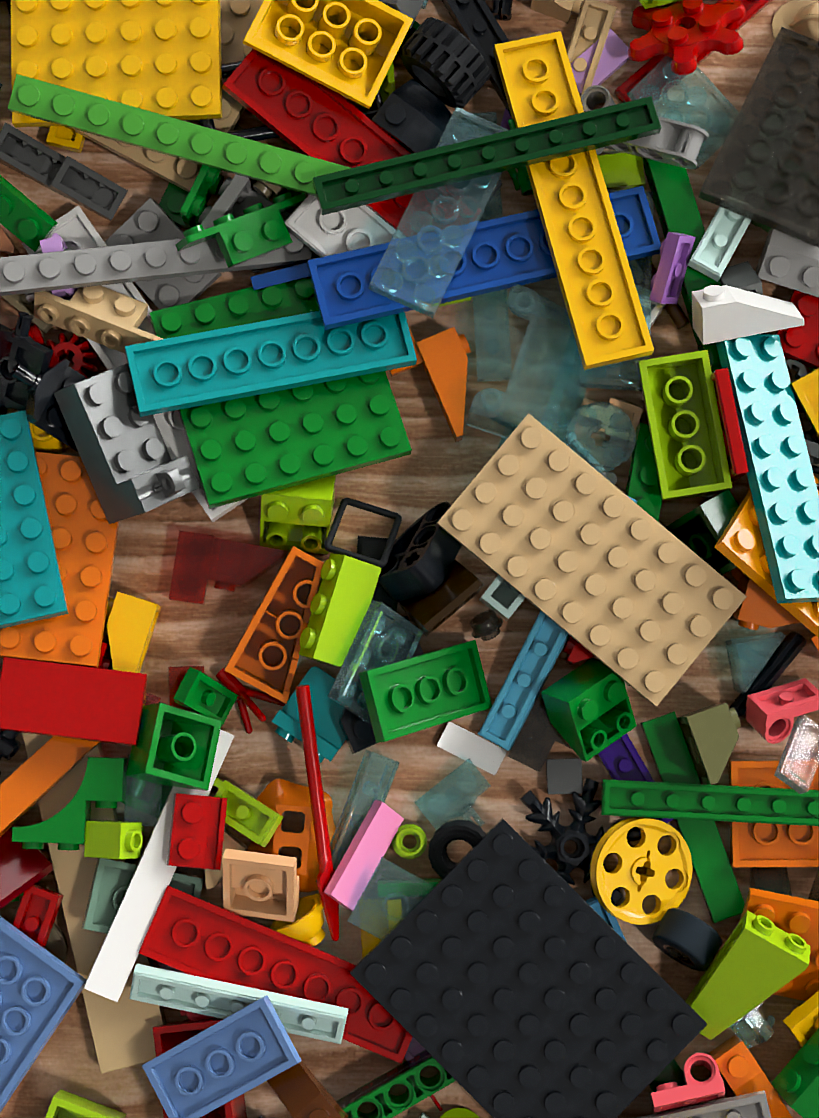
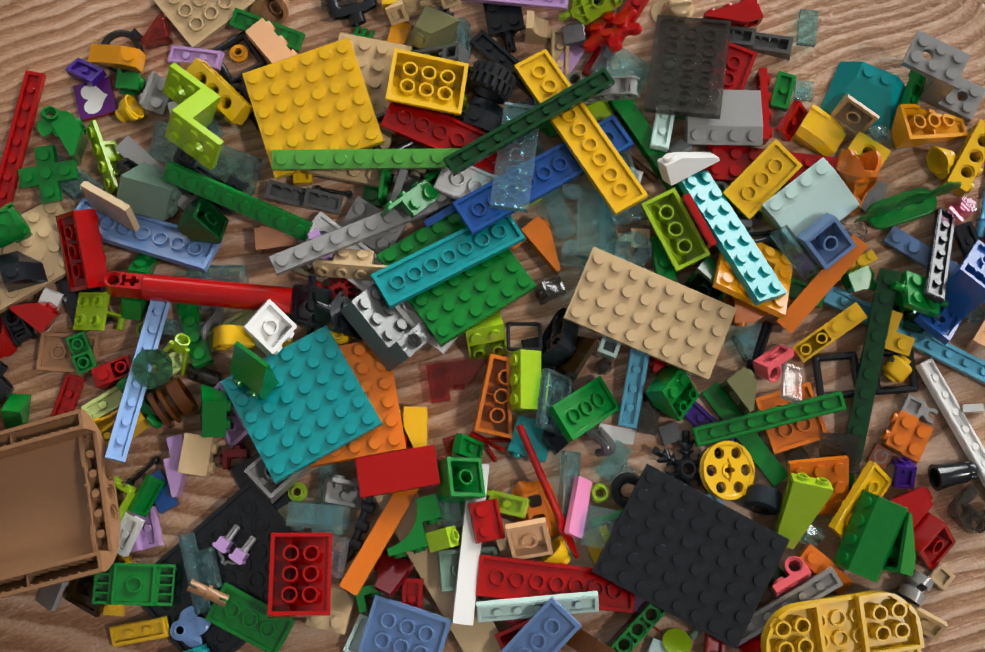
camera: 15 degrees left, 5 degrees down
(138, 188) = (348, 194): none -> black hinge
(435, 464) = (549, 290): none -> clear smoke bracket
(446, 758) = (603, 438): none -> dark grey piece
(619, 20) = (573, 35): none -> flat silver slope
(668, 279) = (641, 159): medium lavender plate -> none

